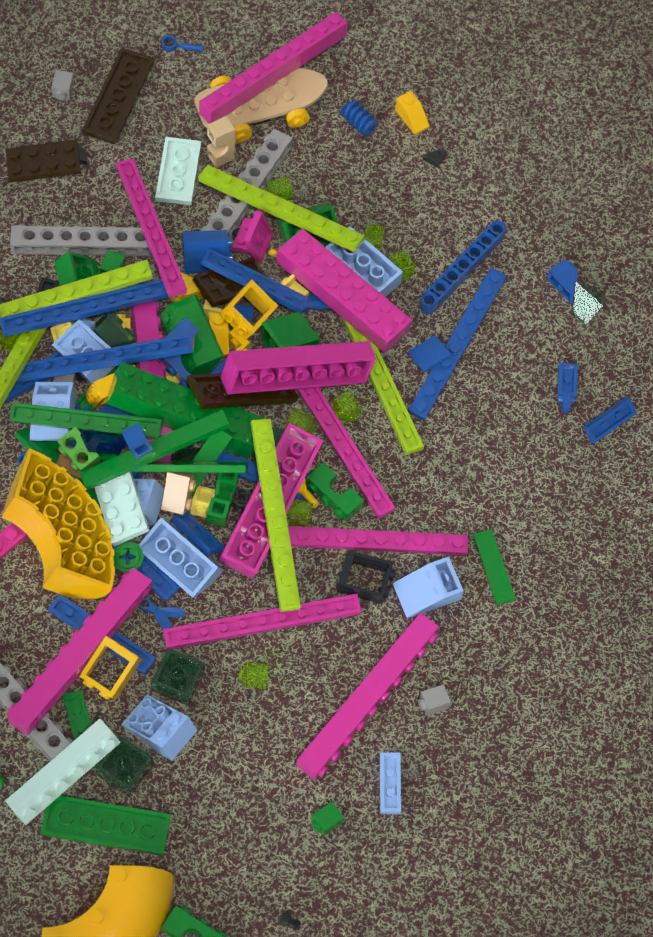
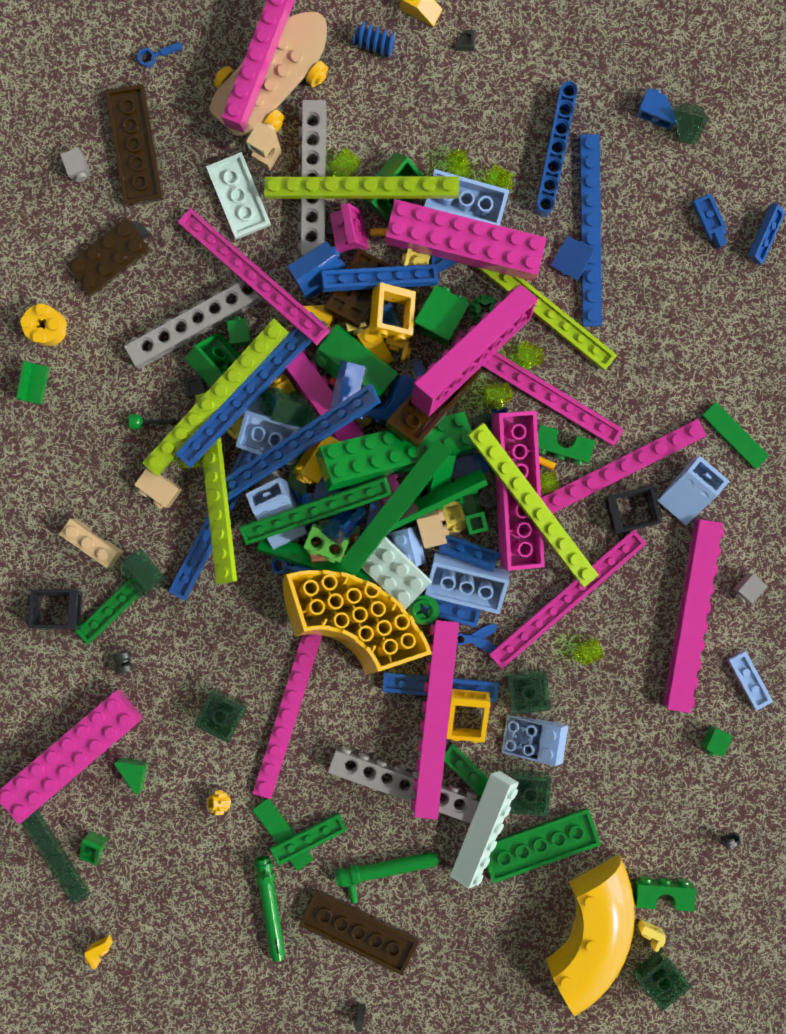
camera: 20 degrees left, 25 degrees up
(137, 440) = (376, 511): blue brick -> none

